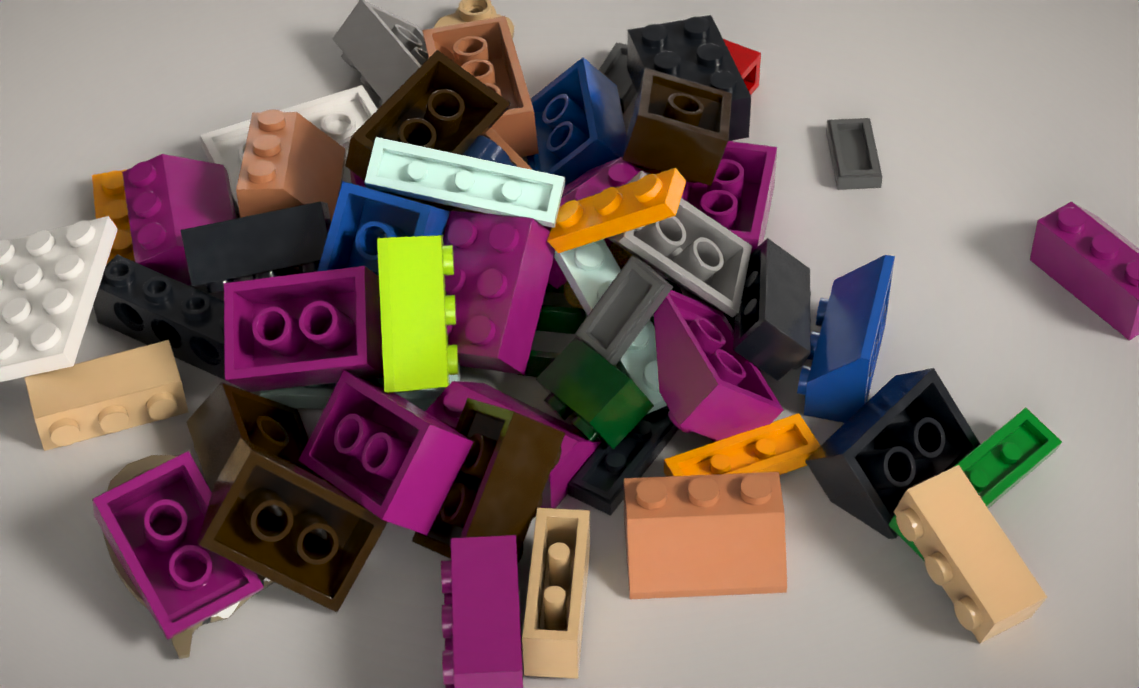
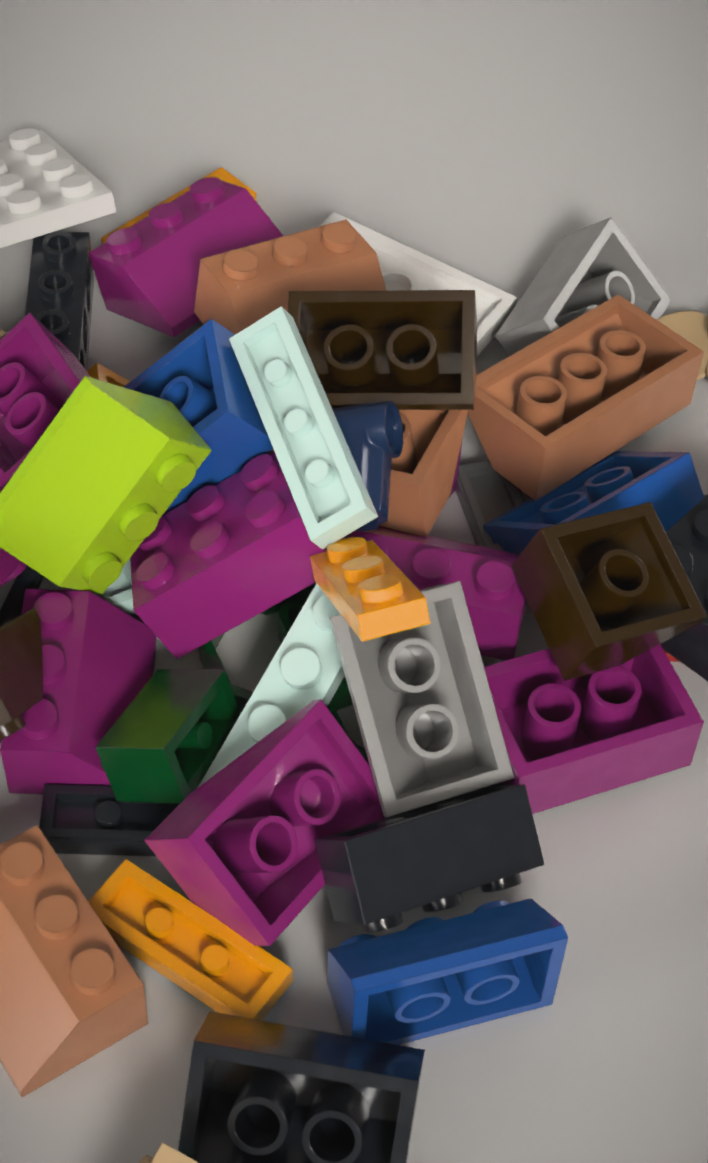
camera: 55 degrees right, 5 degrees up
(257, 245) = (136, 310): black brick -> none
(623, 310) = (270, 688): dark grey tile -> none

